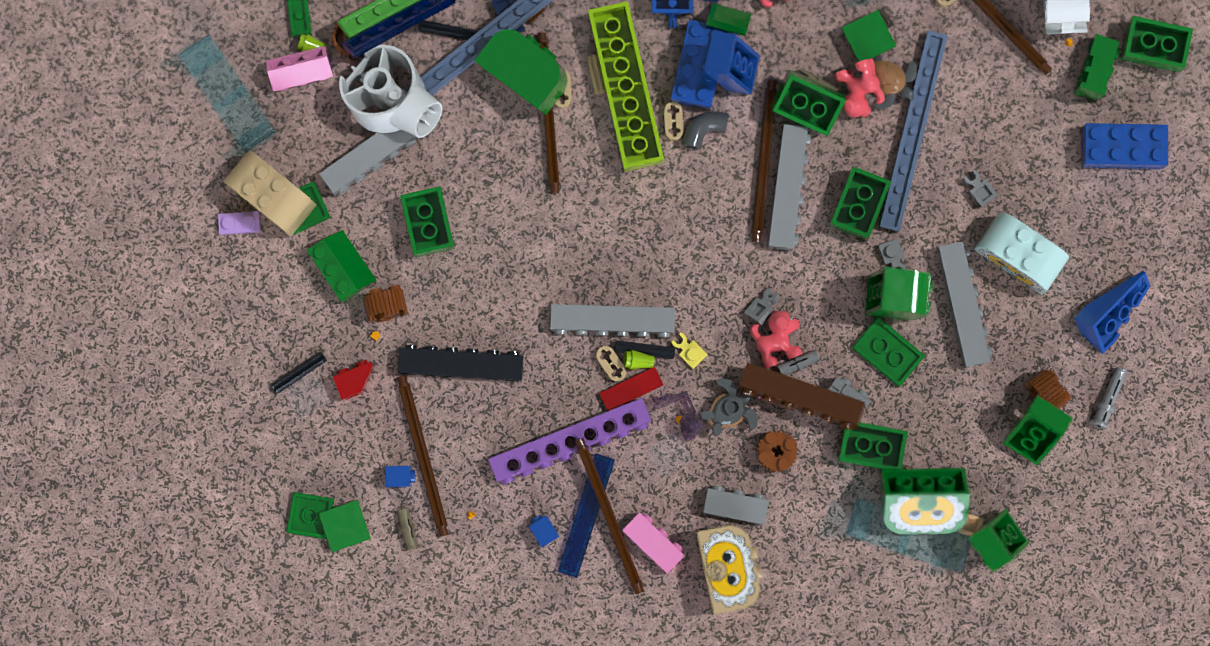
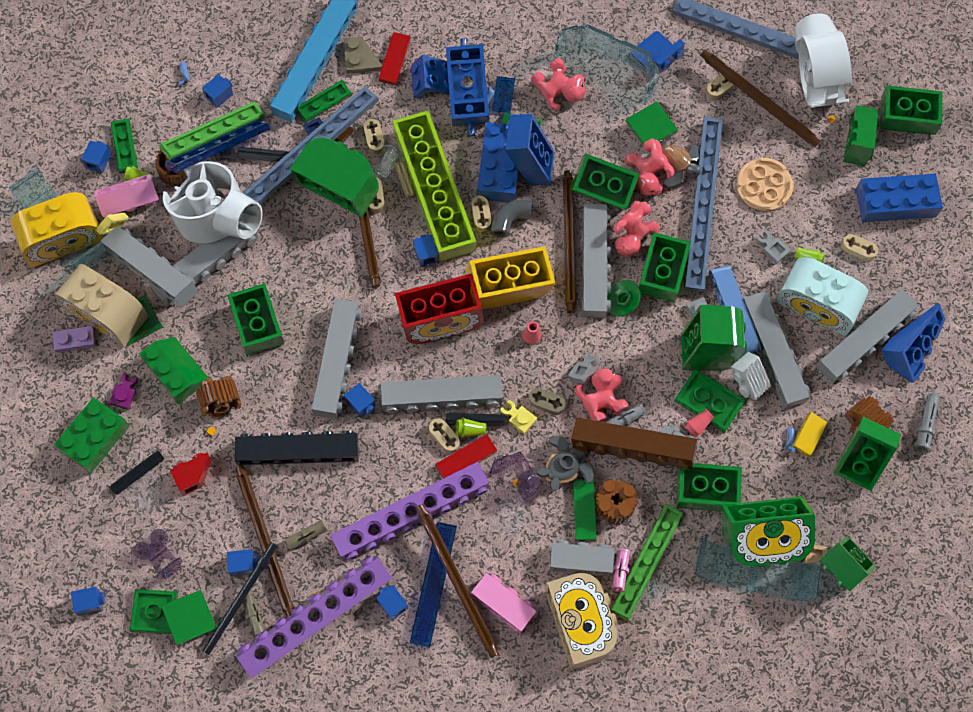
camera: 10 degrees left, 15 degrees down
(225, 104) = (55, 228): none -> yellow brick
(247, 500) = (87, 601): none -> blue brick
(255, 331) = (91, 435): none -> green brick
(268, 17) = (96, 156): none -> blue brick
(282, 101) = (111, 222): none -> light yellow plate
(288, 289) = (123, 394): none -> magenta plate
(315, 457) = (157, 552): none -> clear purple piece
(321, 155) = (150, 266): none -> light grey brick
(419, 481) = (262, 562): none -> black bar
(462, 547) = (255, 665): none -> medium lavender brick
(463, 454) = (305, 535): none -> dark tan pin
(507, 271) = (335, 359): none -> light grey brick
(529, 319) = (360, 400): none -> blue brick
(561, 19) = (370, 137): none -> tan beam
(578, 55) = (388, 162): none -> clear hose
(610, 159) = (425, 250): none -> blue brick
(618, 233) = (440, 310): none -> red brick
(695, 205) = (511, 277): none -> yellow brick
(712, 268) = (532, 333): none -> coral cone
(717, 341) = (545, 405): none -> dark tan beam
(744, 456) = (584, 510): none -> green tile
(776, 510) = (619, 579): none -> bright pink pin
(801, 513) = (647, 562): none -> bright green tile
(808, 227) = (621, 292): none -> green dish
(836, 156) = (636, 229): none -> coral animal
(872, 377) = (699, 423): none -> coral cone
(928, 253) = (730, 295): none -> medium blue beam
(932, 334) = (750, 376): none -> white brick
(966, 402) = (791, 437): none -> medium blue piece
(983, 114) = (764, 184): none -> light nougat tile
(985, 398) = (809, 434): none -> yellow tile
(1019, 205) = (814, 254): none -> lime cone
(1063, 299) = (867, 336): none -> light grey brick
(1076, 193) = (859, 247): none -> tan beam

